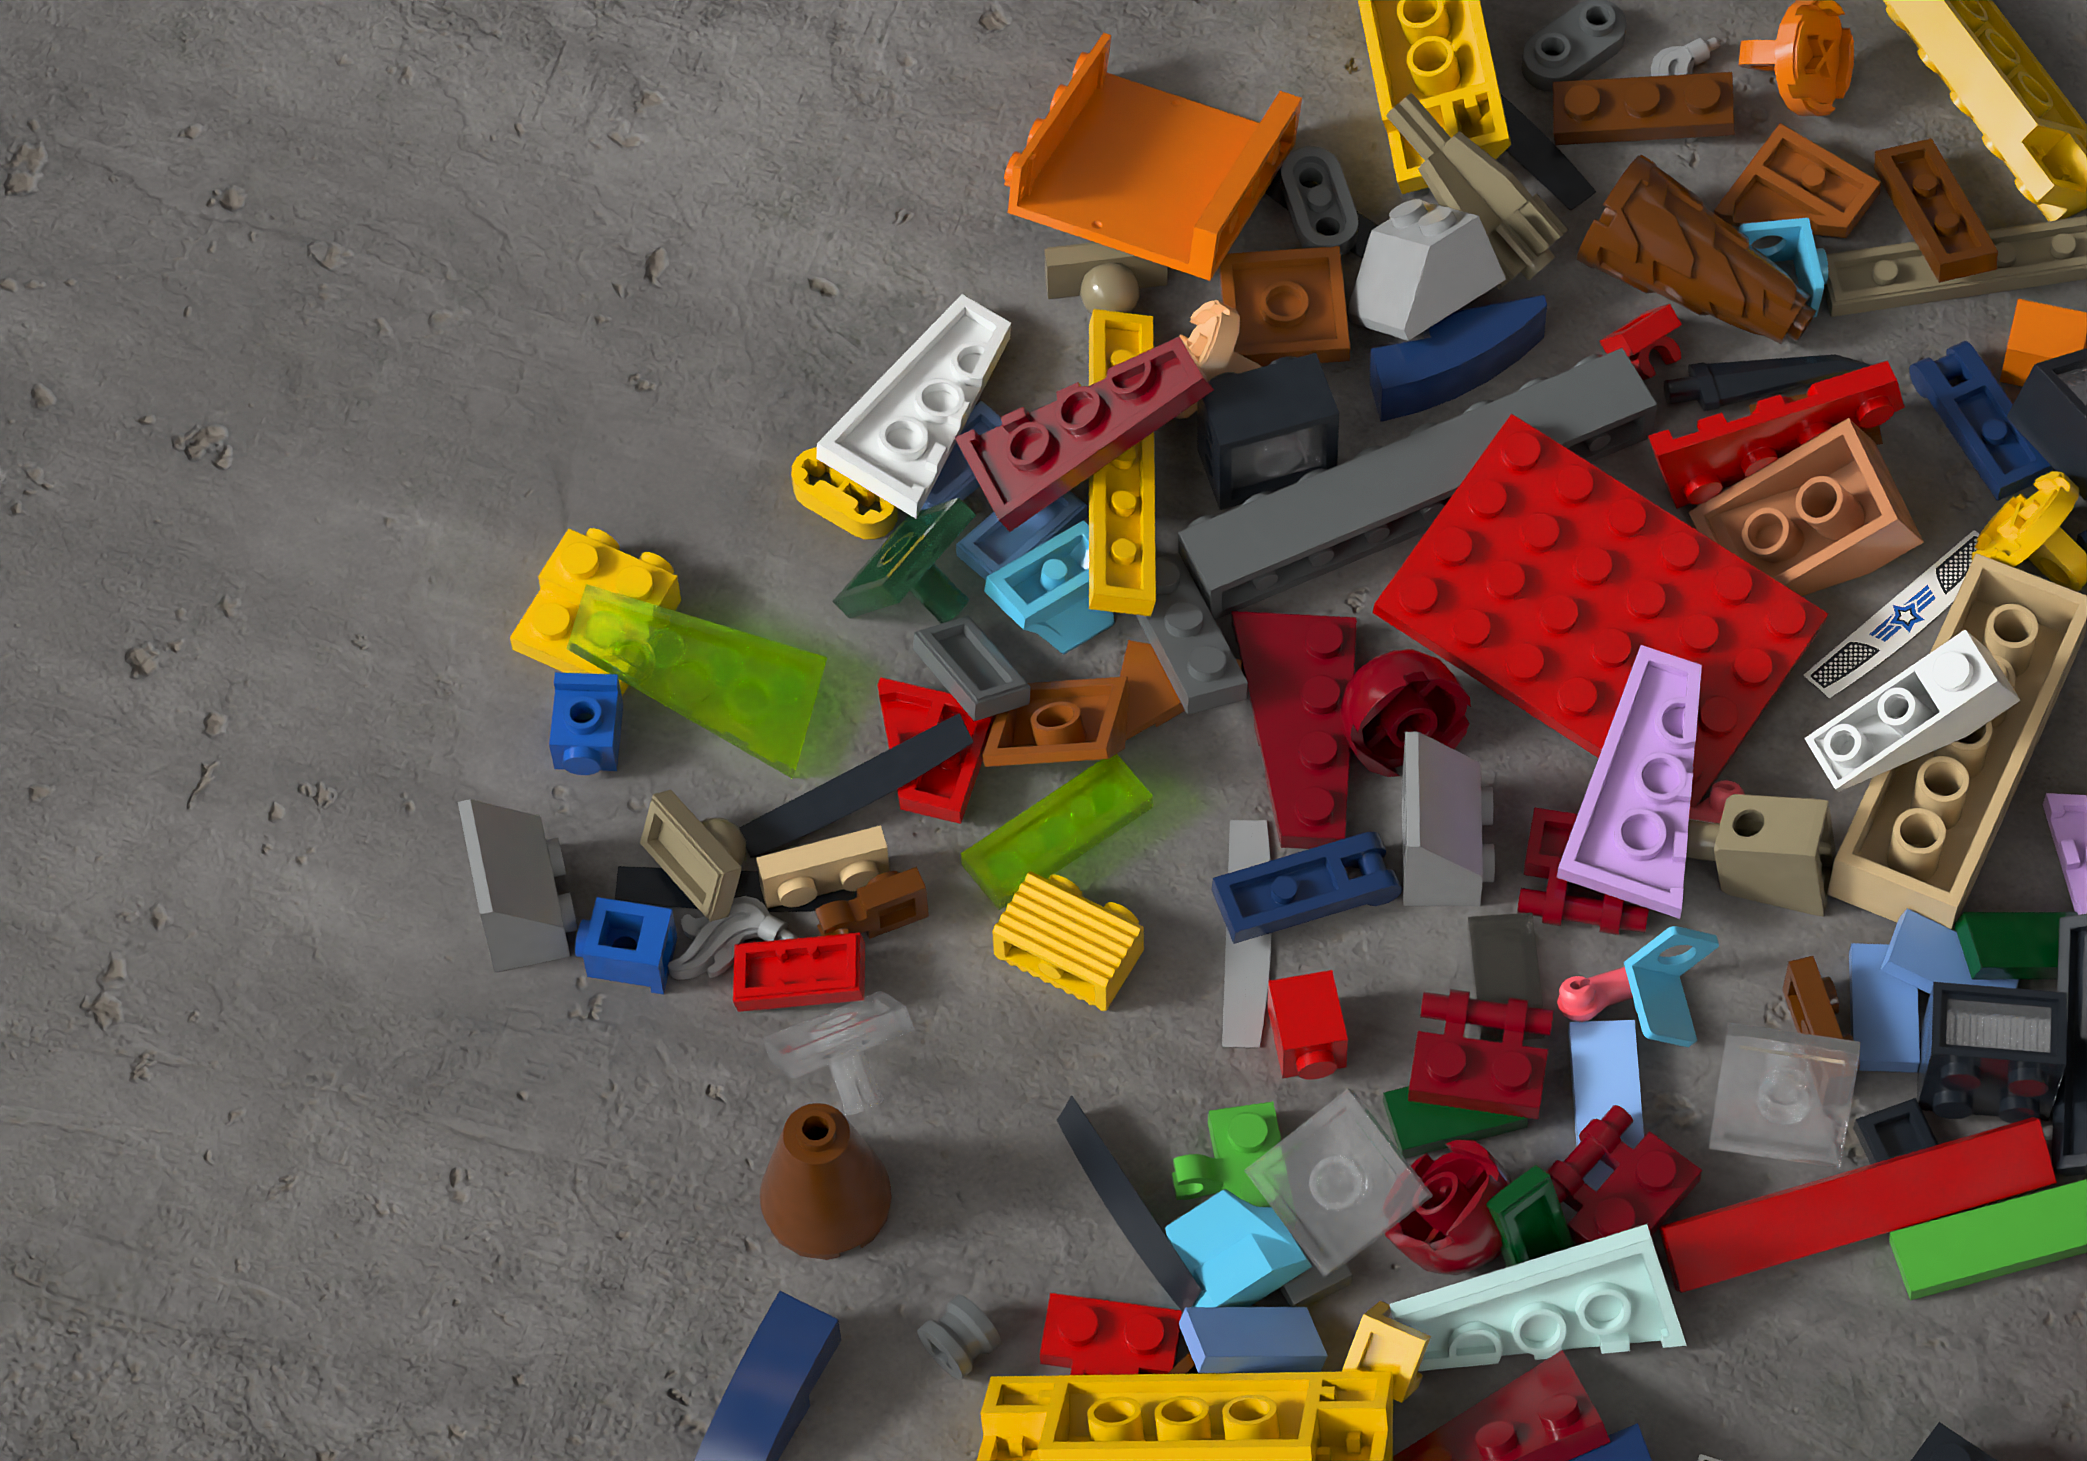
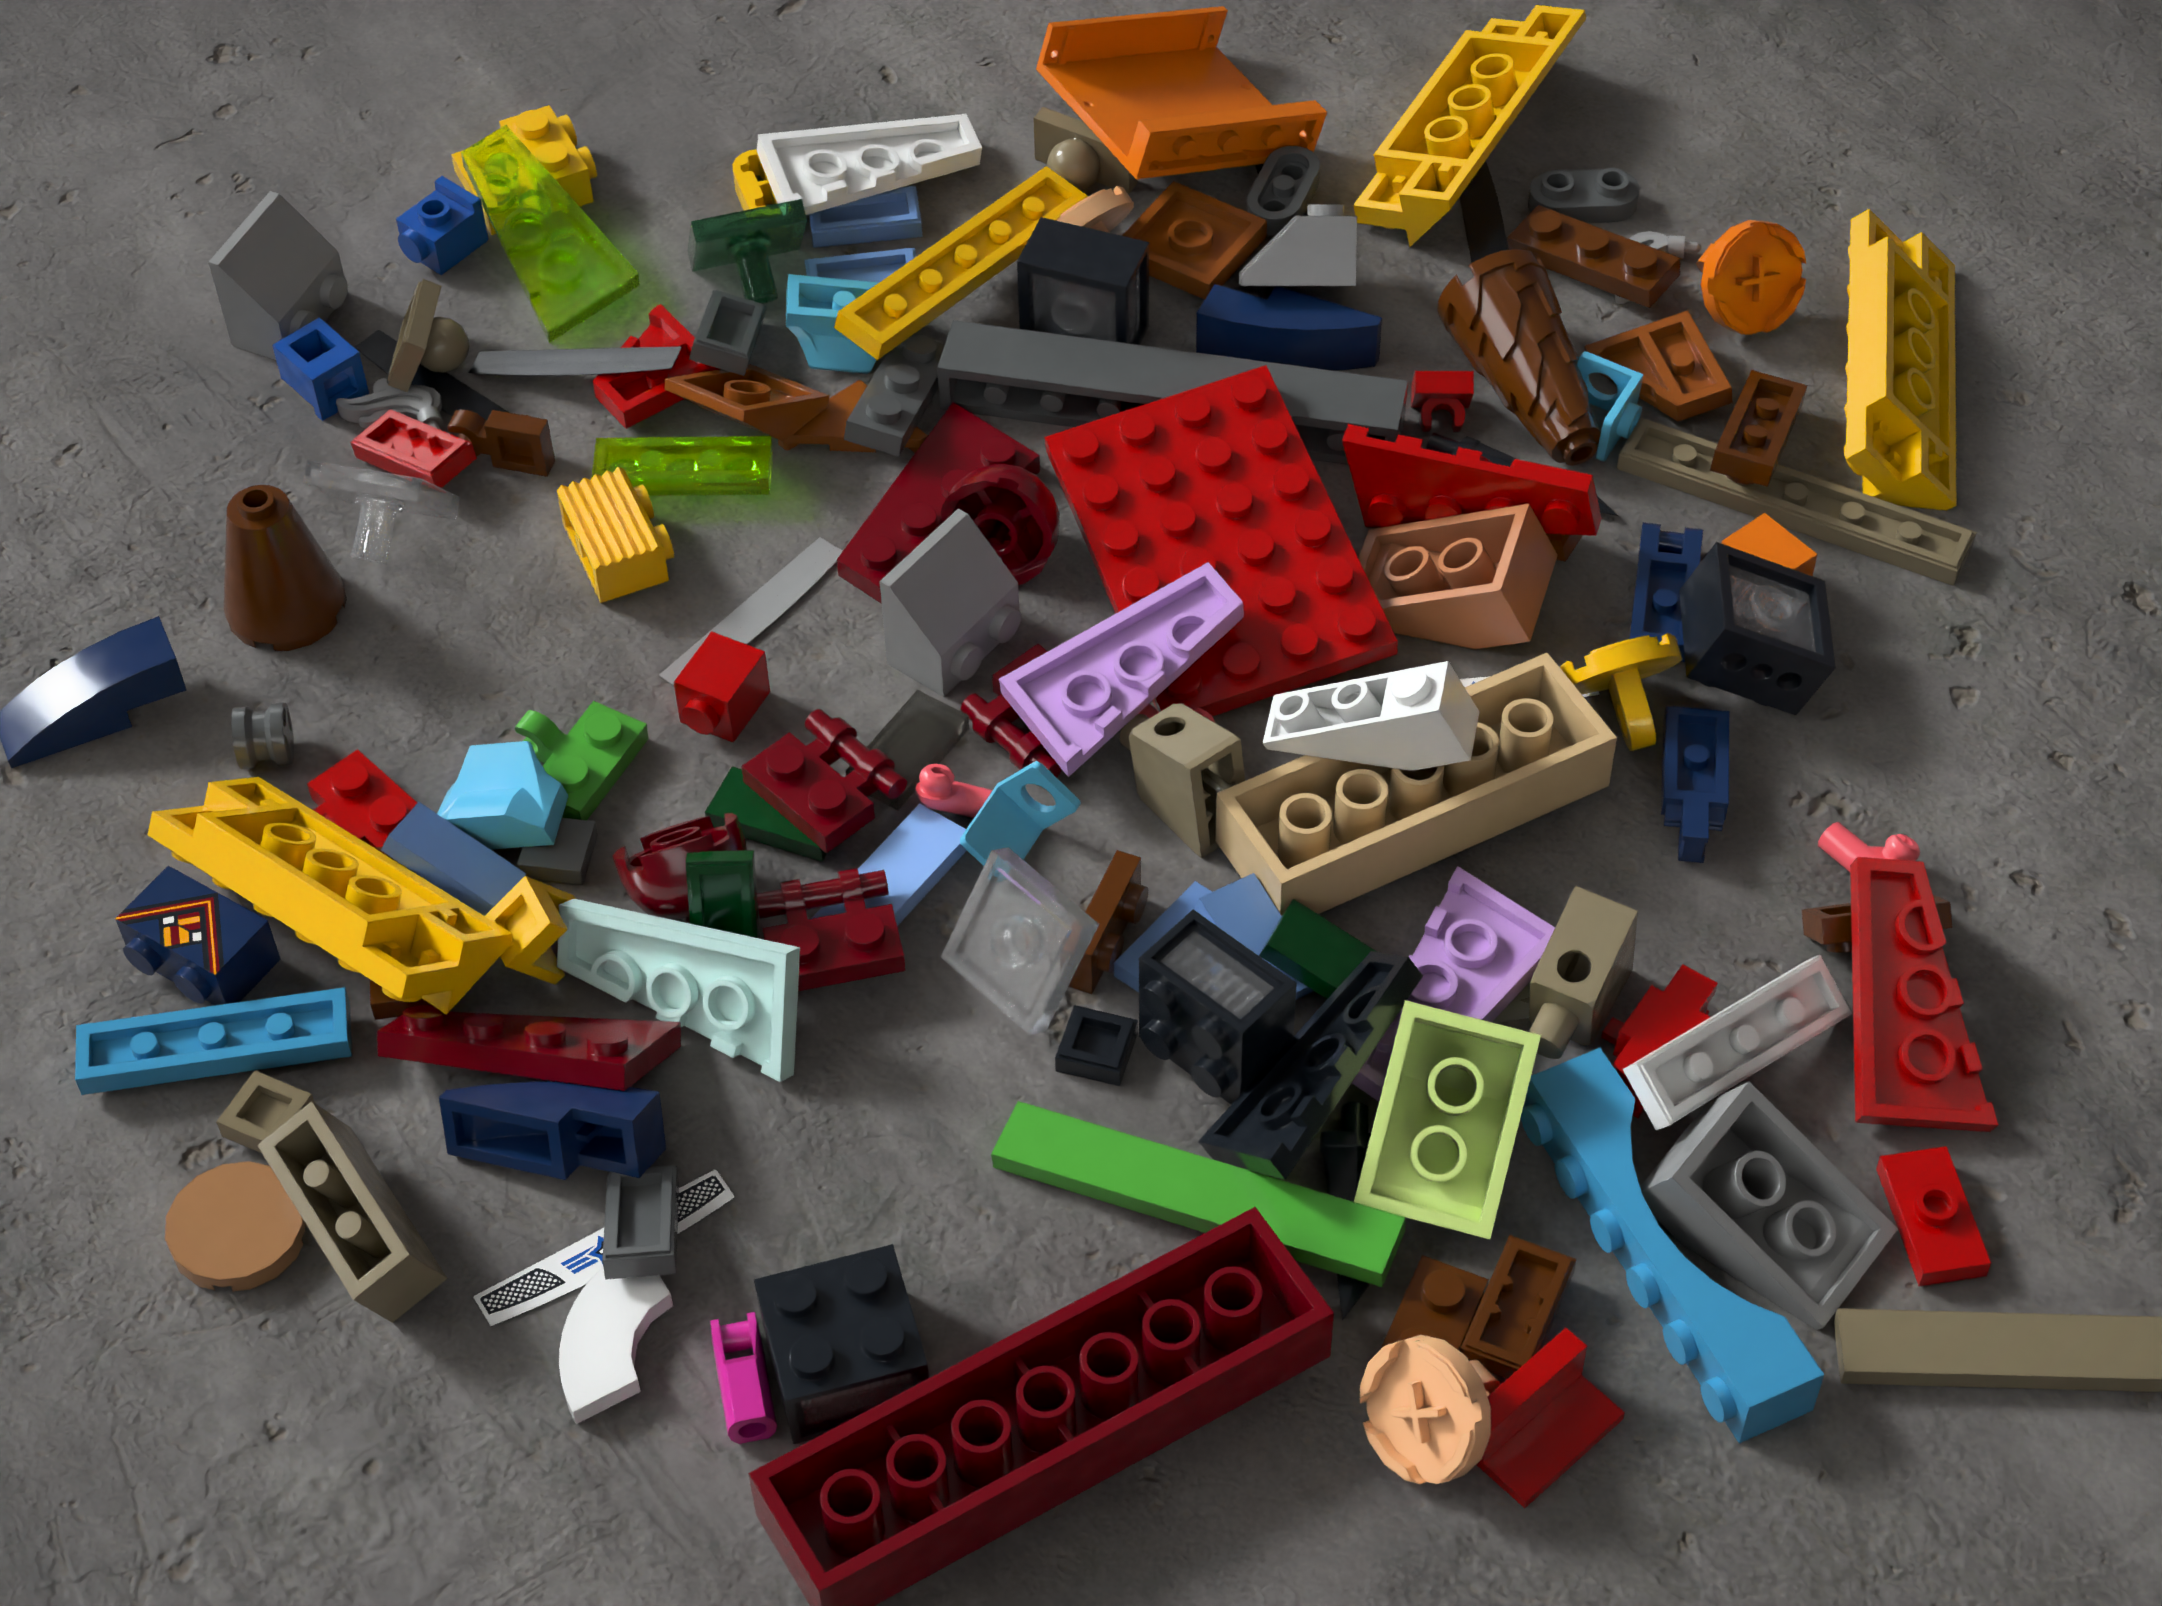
camera: 35 degrees right, 10 degrees down
(822, 867) = (488, 387): tan plate -> none
(1060, 445) = (952, 210): dark red wing -> none
(1127, 1207) = (468, 728): black sticker -> none
(1305, 887) = (810, 599): dark blue plate -> none
(1338, 1183) = (612, 786): clear tile -> none
(1476, 183) = (1396, 252): dark tan piece -> none
(1857, 1204) = (1014, 1065): red tile -> none

